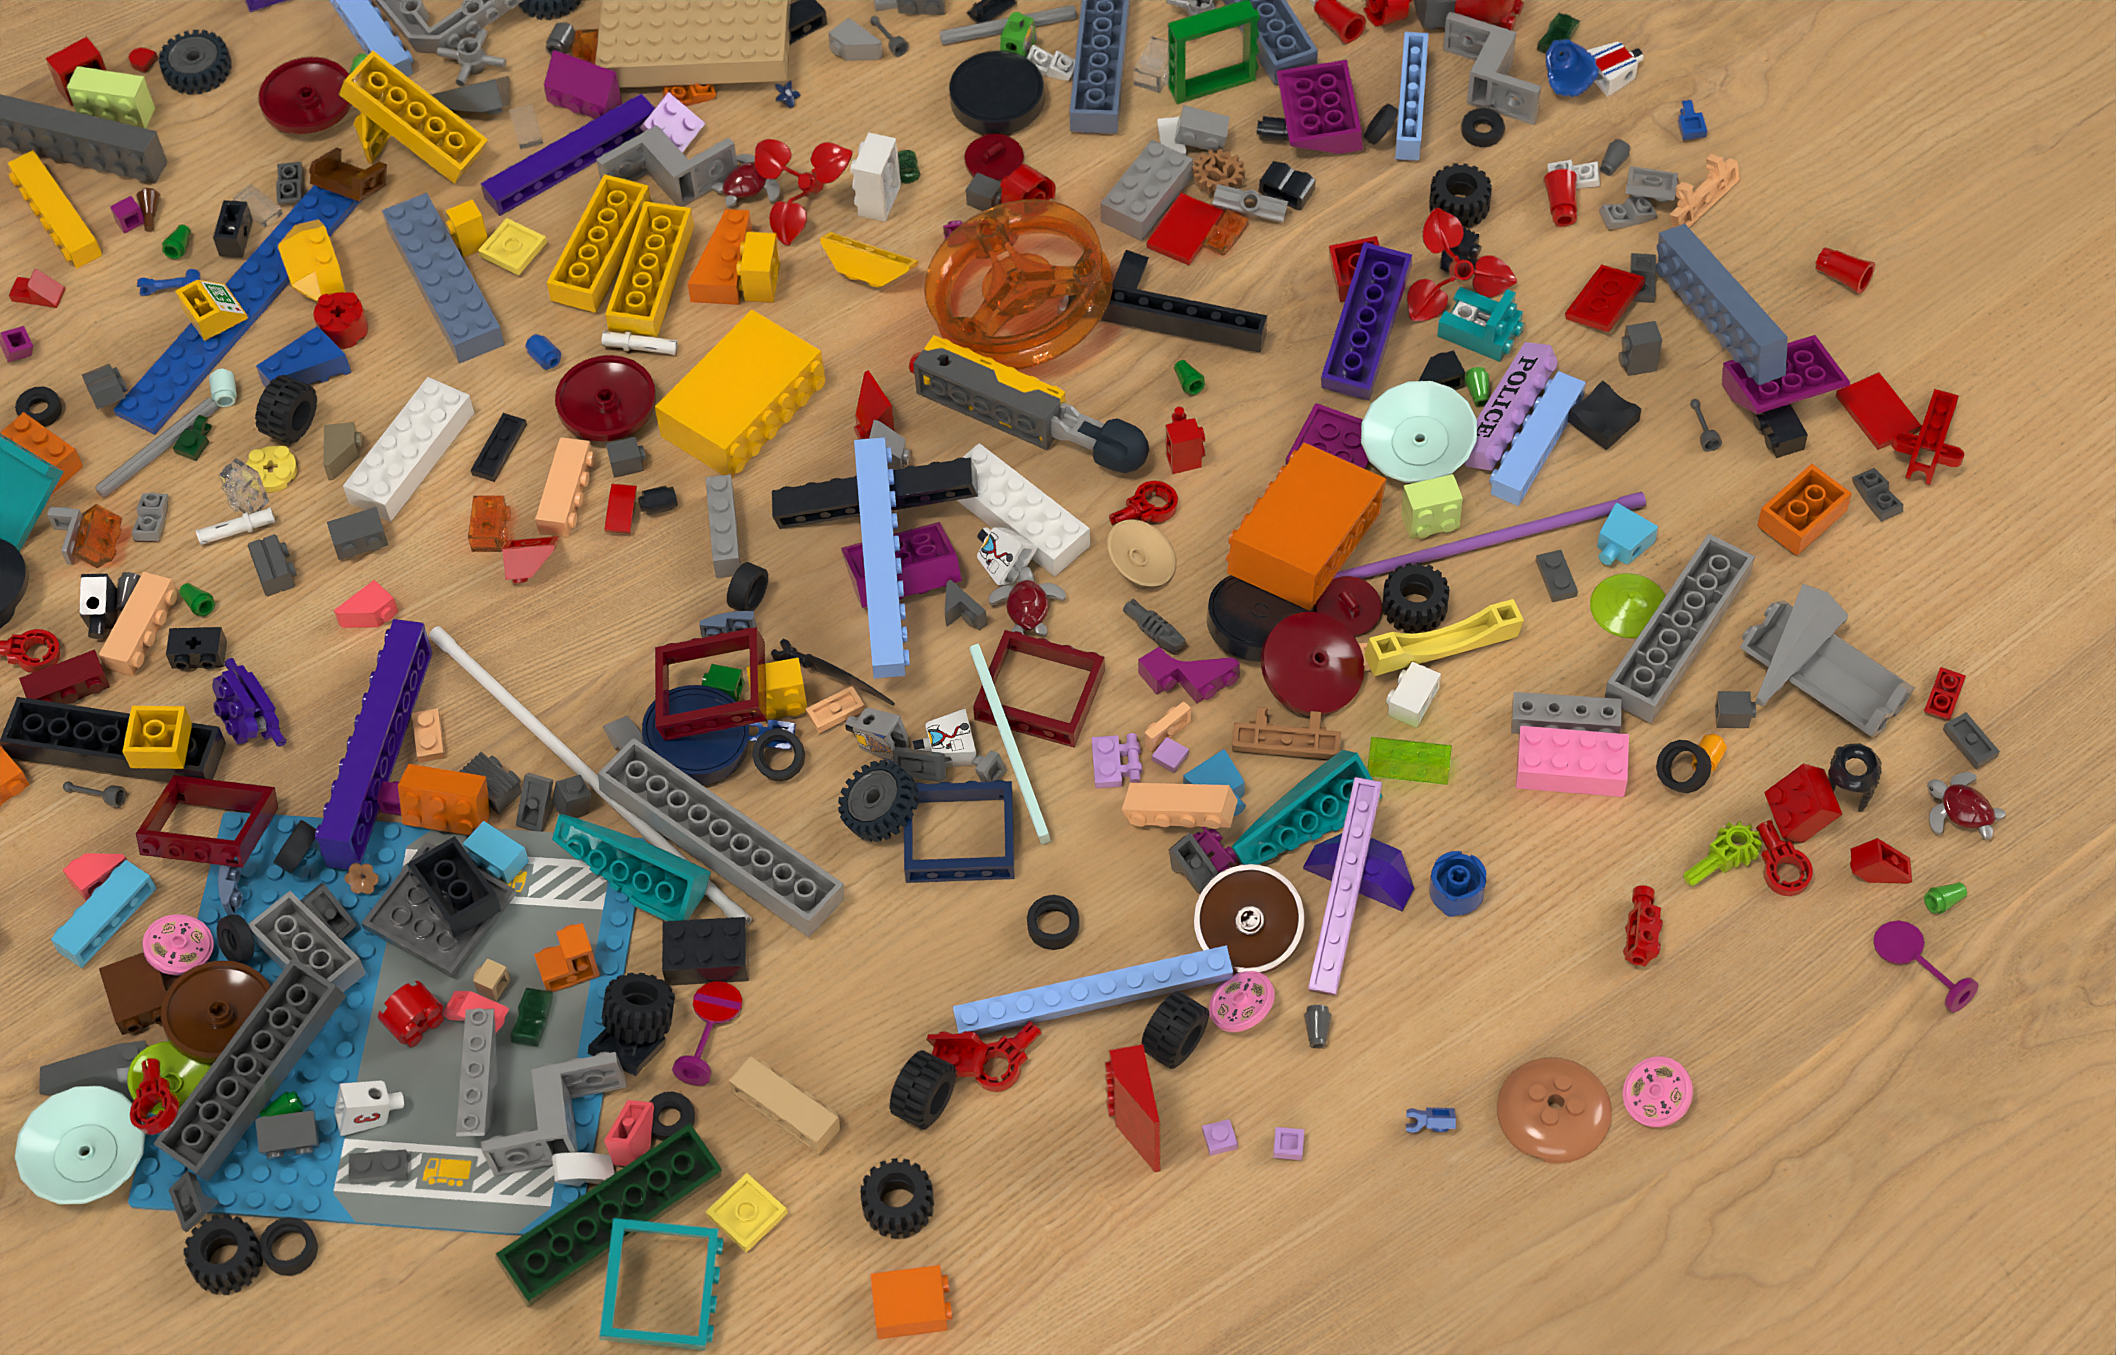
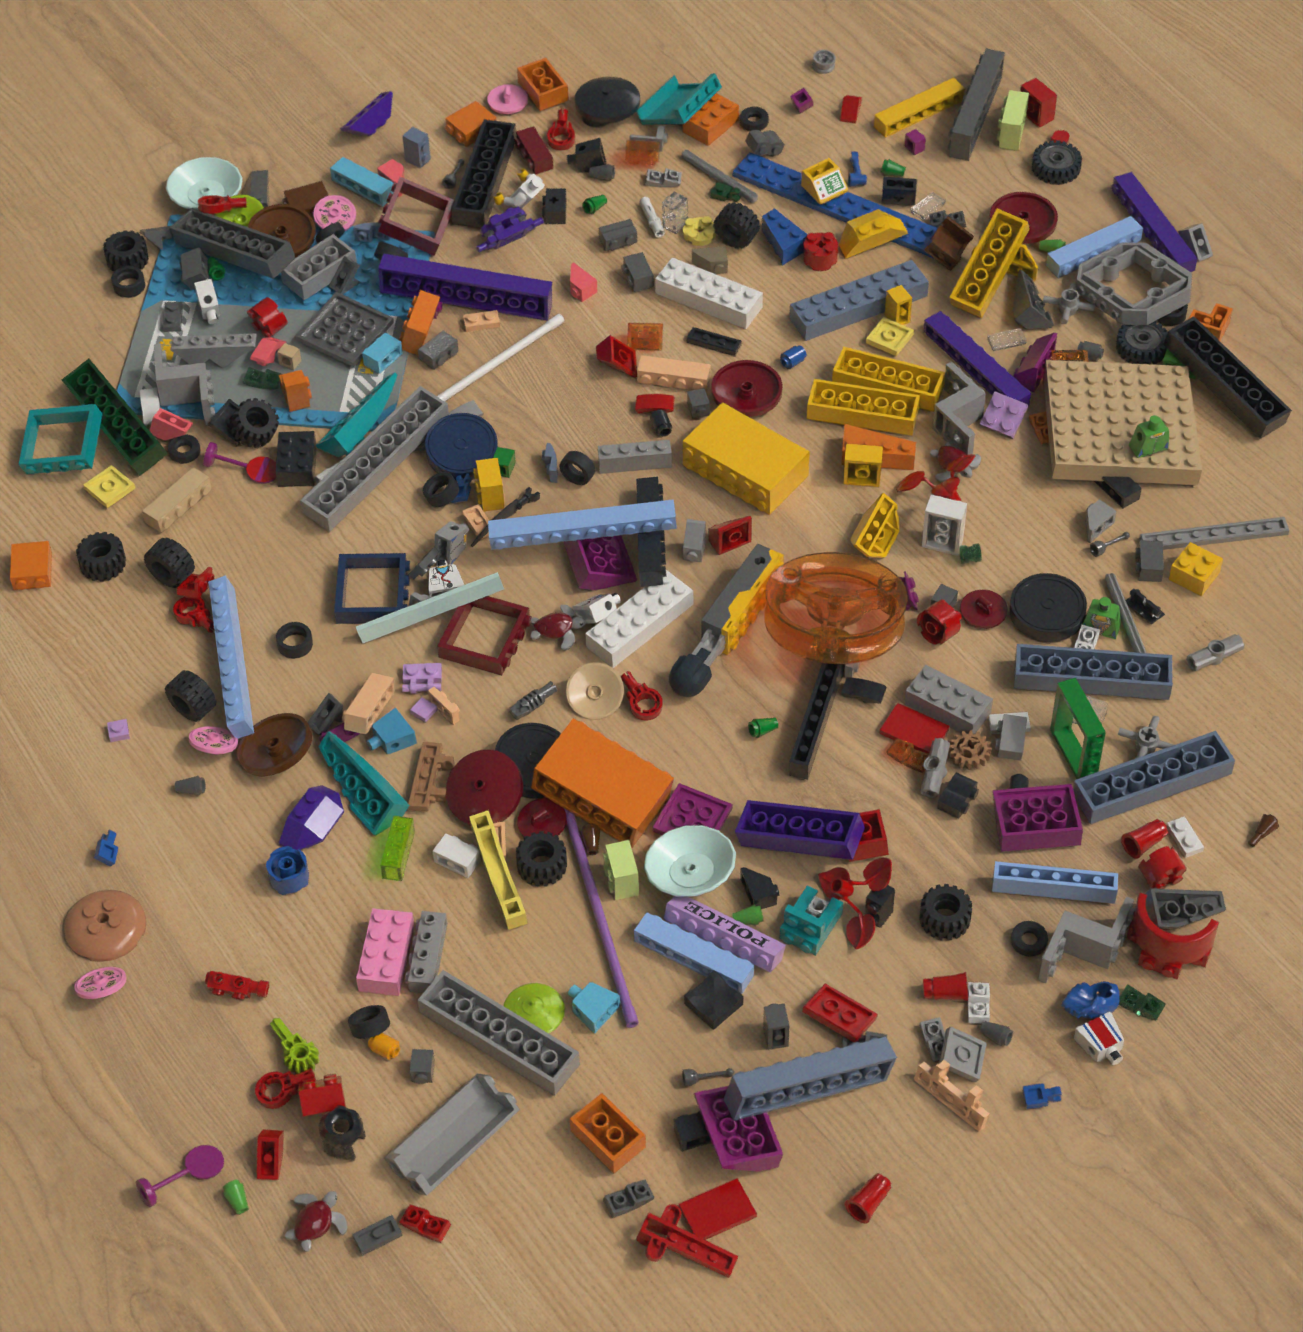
camera: 90 degrees right, 5 degrees down
(41, 836) = (416, 147): none -> sand blue brick
(138, 624) = (576, 178): light nougat brick -> none
(148, 202) = (926, 151): reddish brown cone -> none
(157, 737) = (469, 179): yellow brick -> none
(163, 679) = (524, 193): none -> white torso
(223, 387) = (766, 200): light aqua brick -> none
(361, 878) = (370, 291): medium nougat plant -> none
(454, 887) = (347, 325): black brick -> none
(535, 802) = (420, 372): dark grey slope -> none
(572, 796) = (417, 381): dark grey brick -> none
(635, 342) = (801, 409): white pin -> none
(719, 716) = (484, 457): dark red window -> none
(787, 94) = (1043, 482): dark blue plant -> none
(878, 800) = (394, 539): wheel -> none
(961, 604) = (558, 587): dark grey slope -> none
(1133, 1101) = (125, 665): red slope -> none
(1184, 442) = (691, 712): red brick -> none
(1198, 678) = (481, 724): magenta arch -> none
(1288, 1143) = (104, 766): lavender plate -> none
(1345, 886) = (288, 795): lavender tile -> none
(1374, 551) = (591, 837): none -> reddish brown cone
(1381, 123) = (1020, 857): black tyre -> none
(1556, 576) = (562, 959): dark grey plate -> none
(1808, 627) = (480, 1112): light grey wedge -> none

